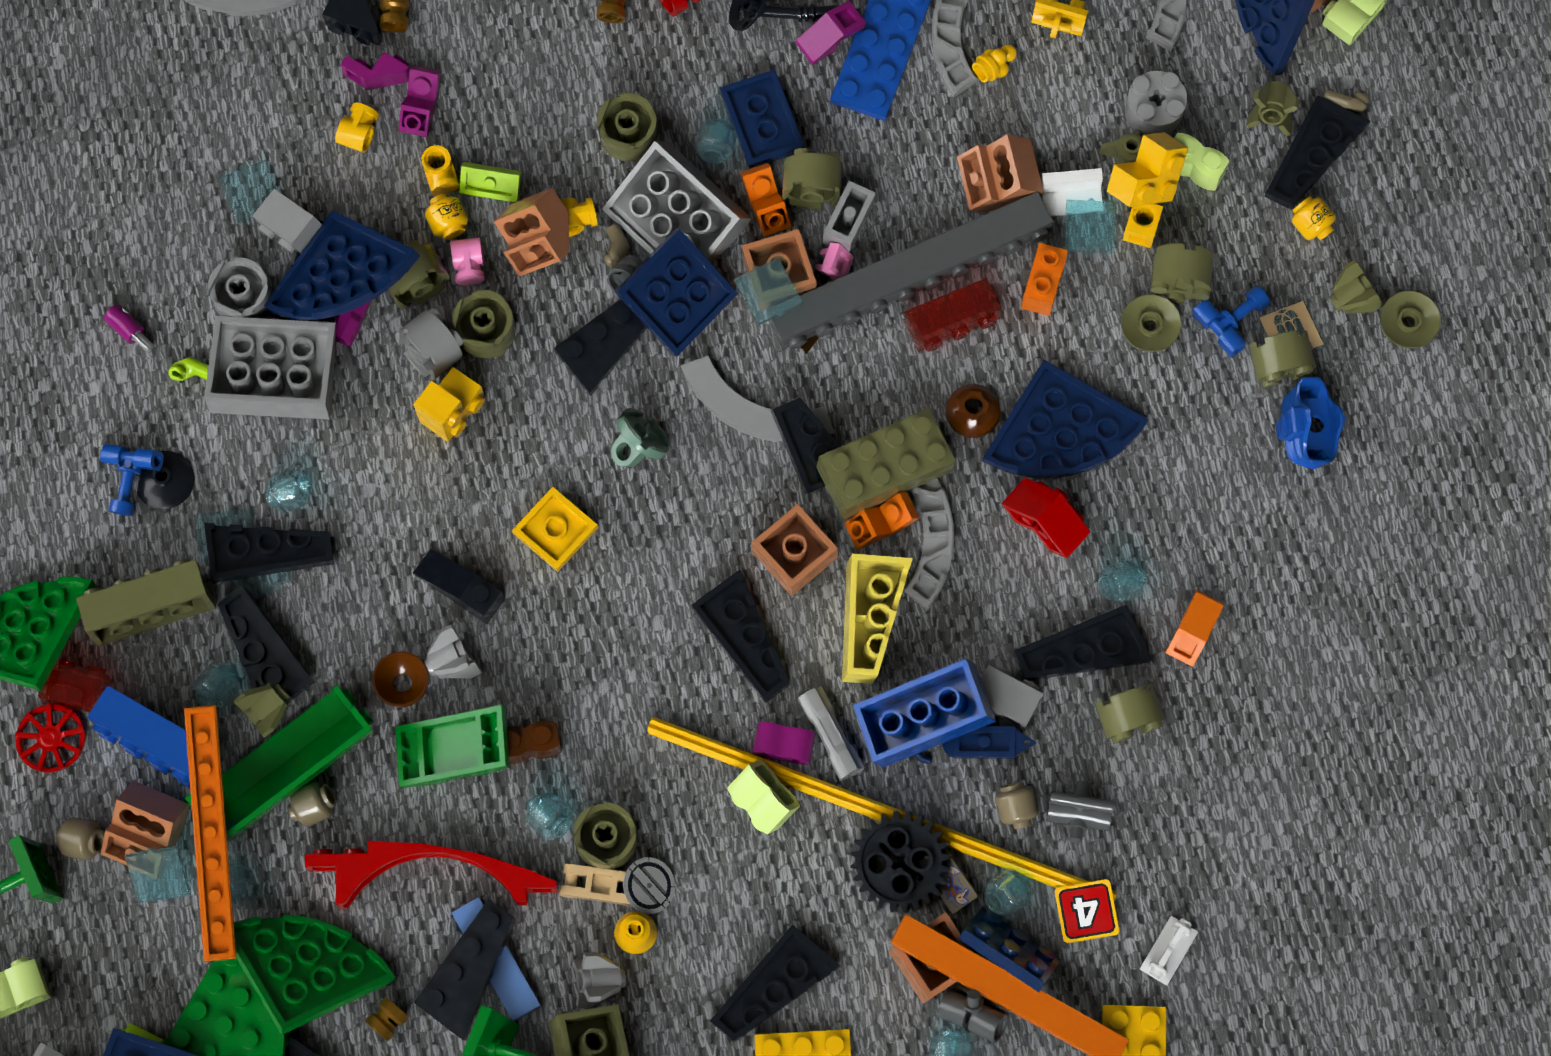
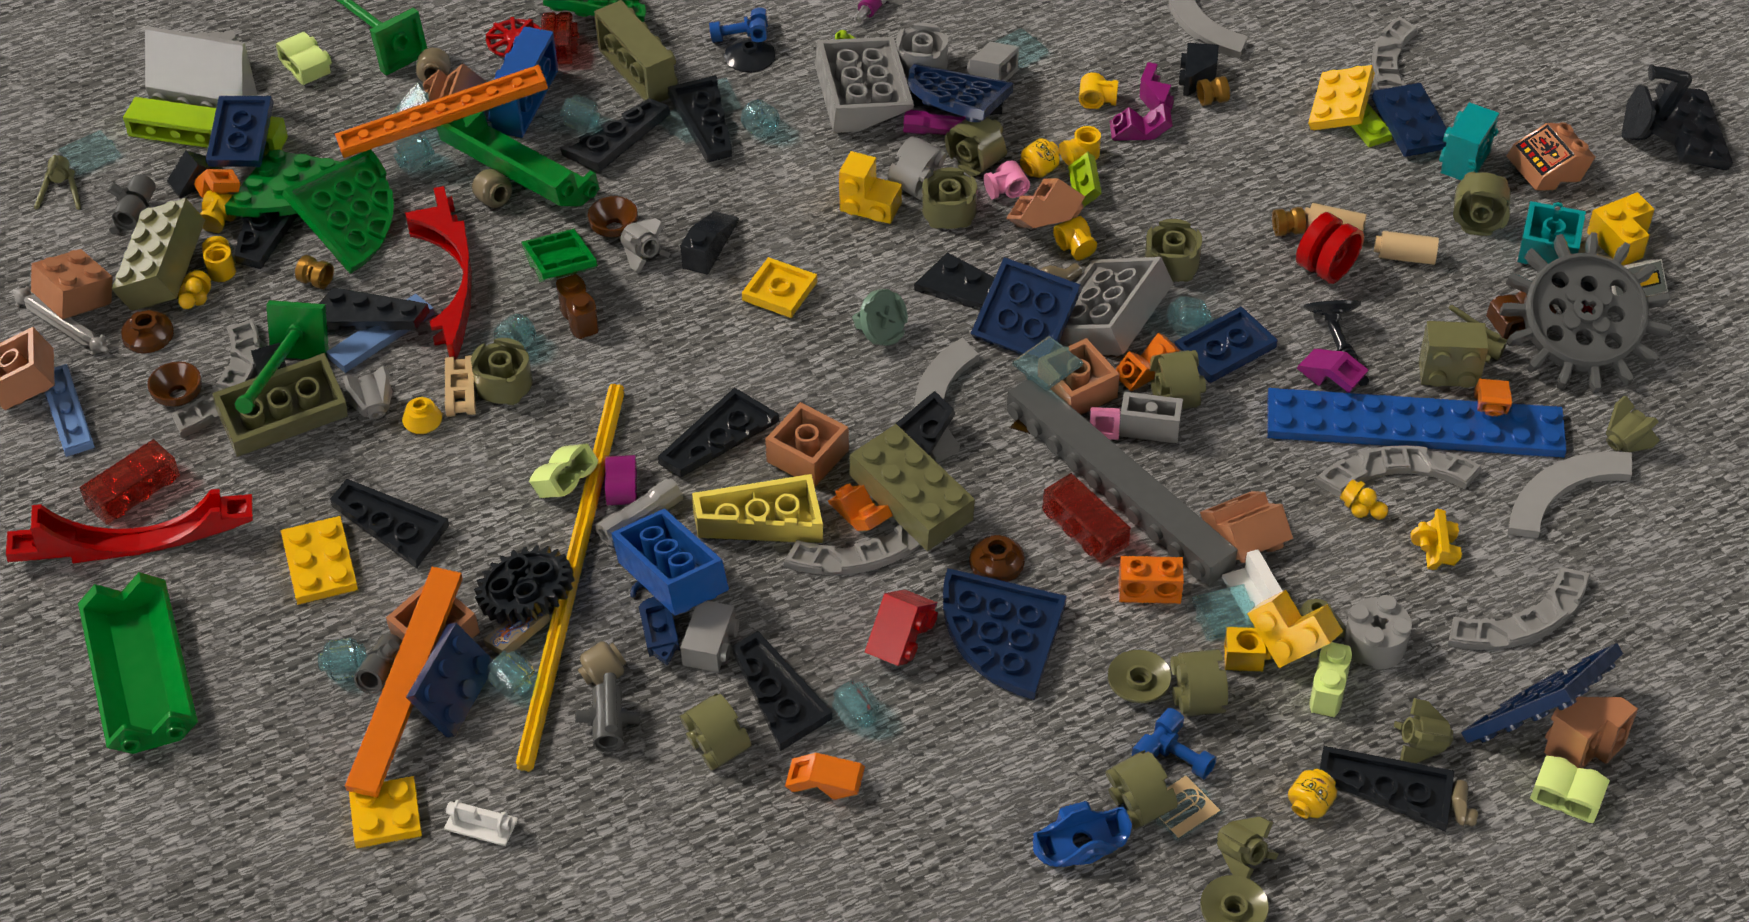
camera: 75 degrees right, 25 degrees down
(264, 706) = (565, 136): olive brick -> none
(649, 885) = (466, 415): light grey sticker -> none
(1086, 911) = (507, 744): sticker -> none

